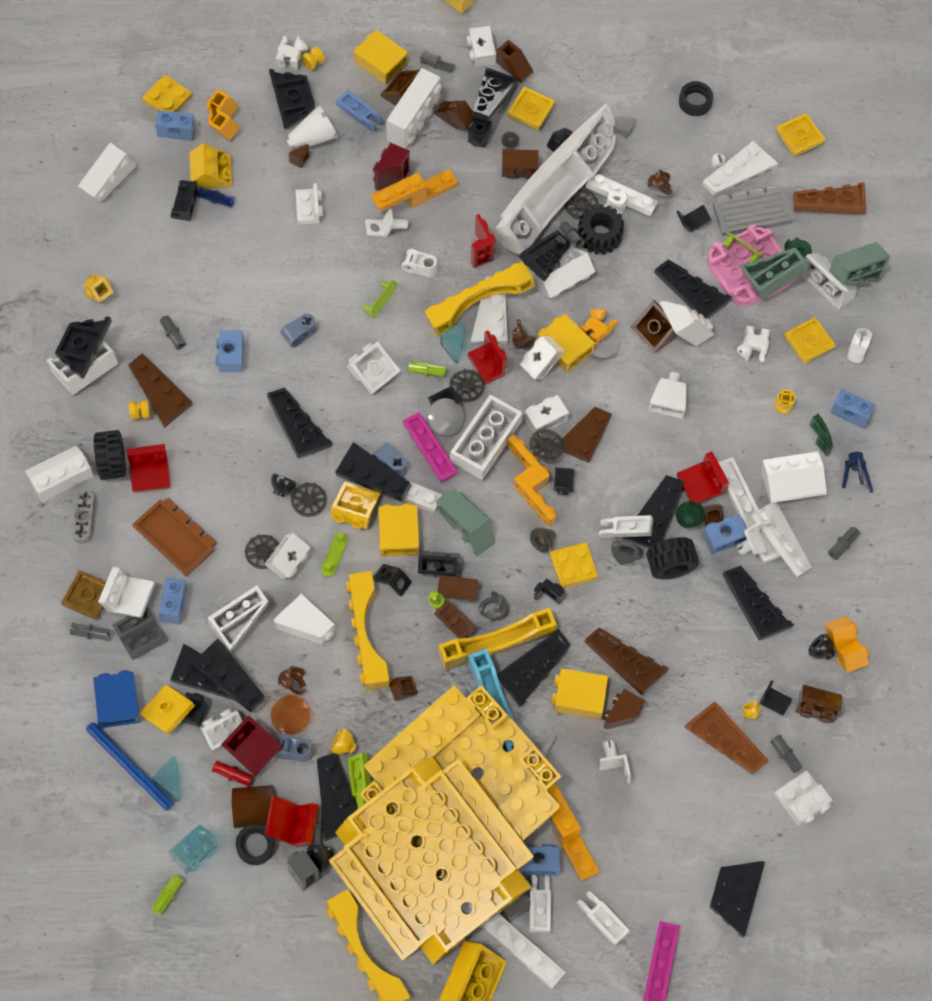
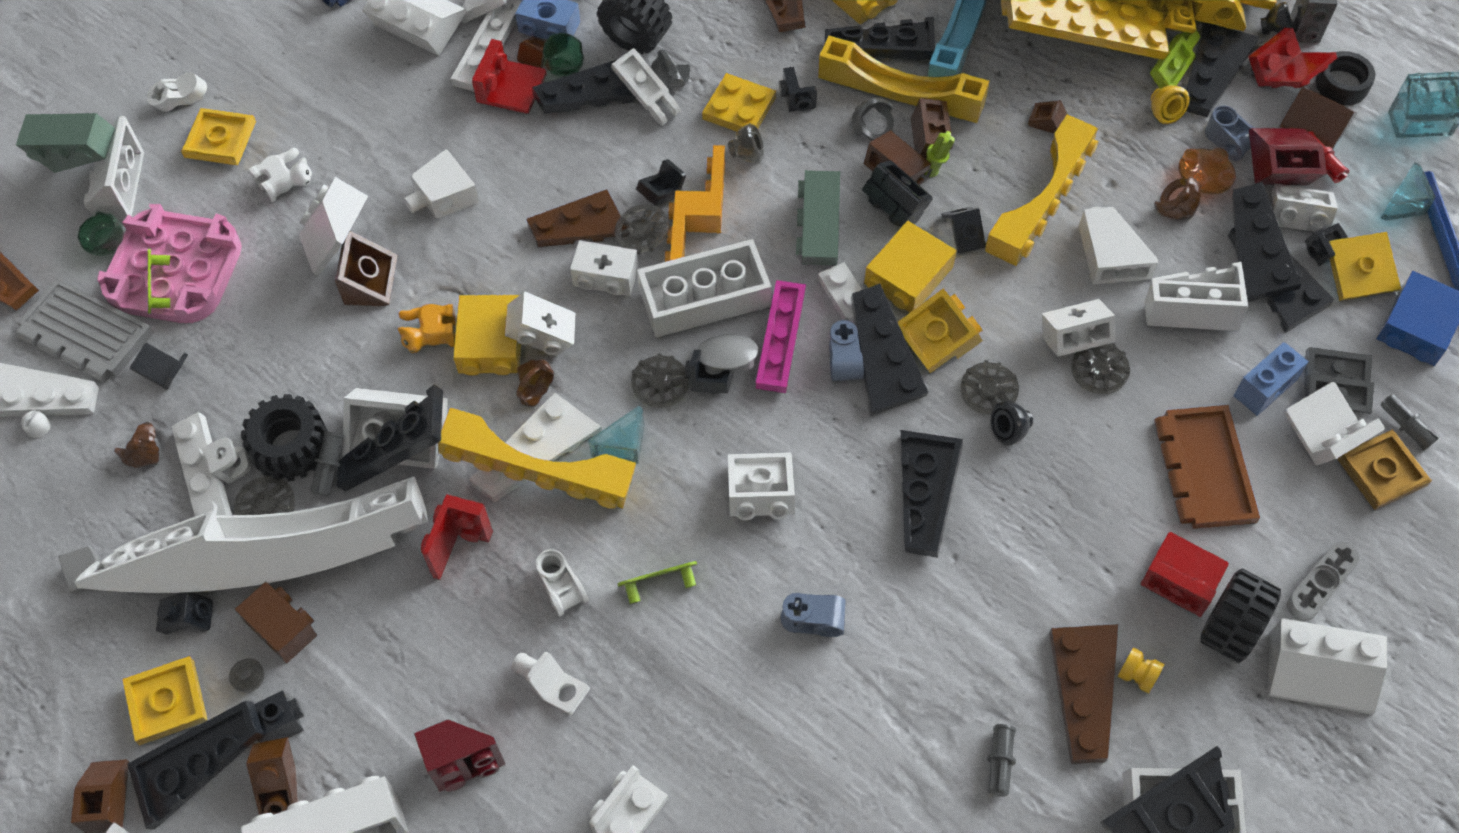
camera: 135 degrees left, 5 degrees down
(233, 341) = (944, 639): medium blue brick -> none
(334, 554) = (1010, 305): lime piece -> none
(414, 190) = (461, 693): light orange bracket -> none
(426, 368) = (690, 434): lime axle -> none
(489, 359) = (603, 382): red bracket -> none
(691, 289) = (270, 286): black wing -> none
(775, 272) = (164, 208): sand green wedge -> none
(784, 406) = (327, 93): yellow wheel -> none
(824, 438) = (333, 33): clear green slope -> none
(852, 408) = (269, 35): medium blue brick -> none

